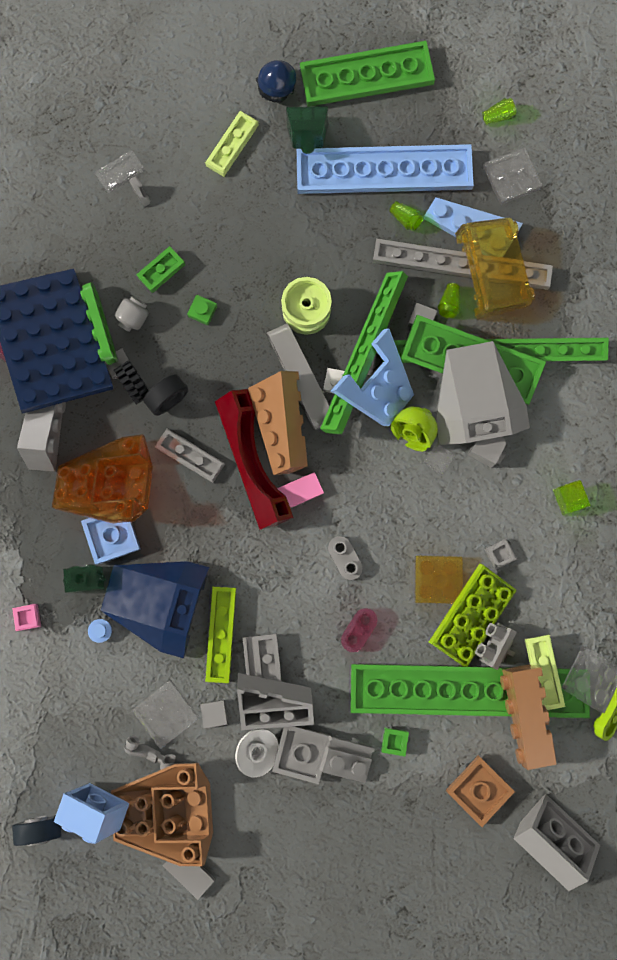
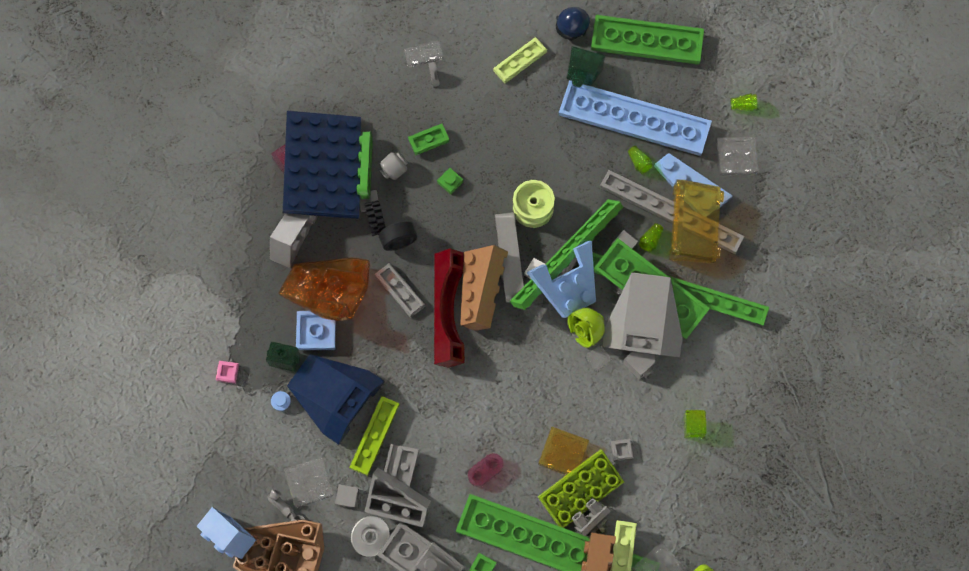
camera: 20 degrees right, 10 degrees down
(35, 831) = (178, 534): black wheel -> none
(302, 490) = (479, 346): bright pink tile -> none
(344, 558) = (494, 410): light grey plate -> none

